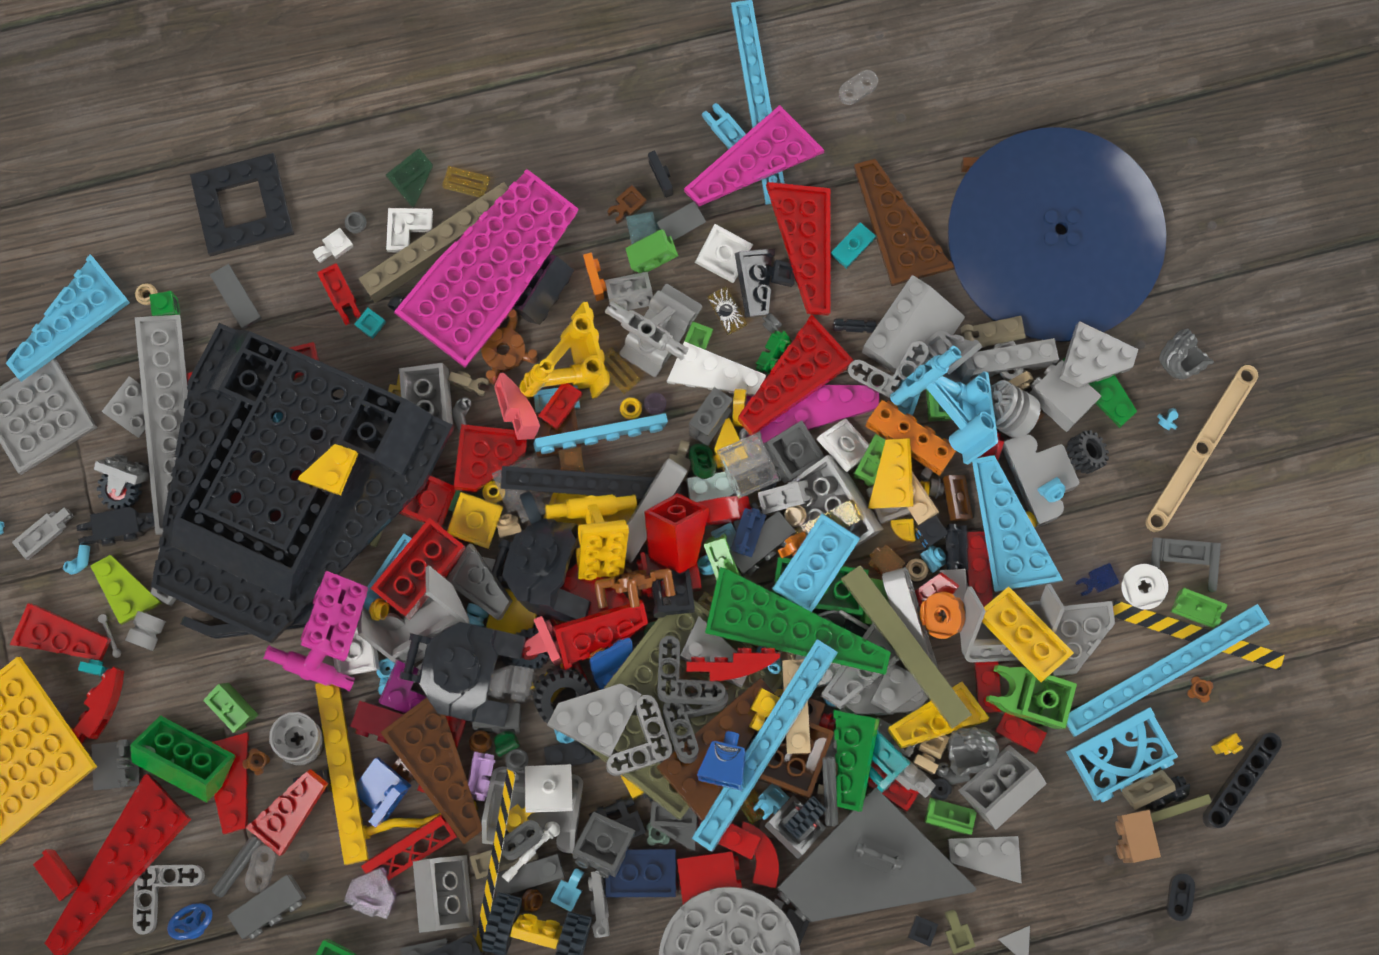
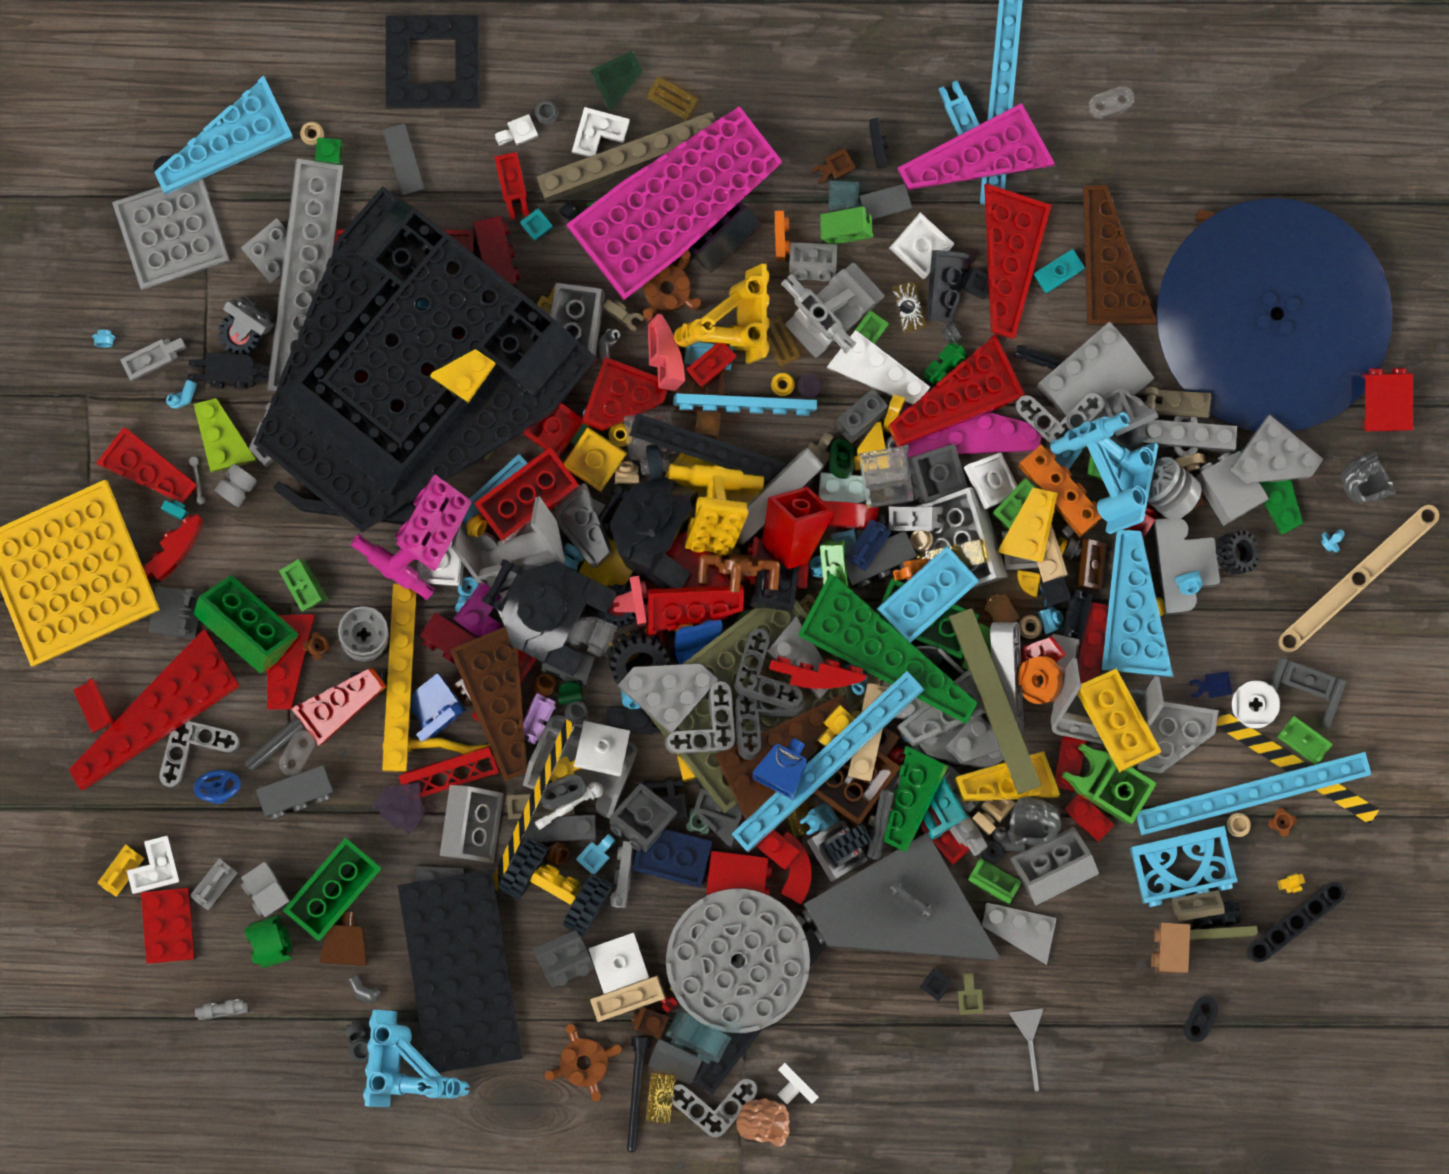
camera: 15 degrees right, 5 degrees up
(336, 352) = (494, 248): none -> dark red brick
(1161, 702) = (1238, 825): none -> tan plate
(1182, 281) = (1388, 400): none -> red panel

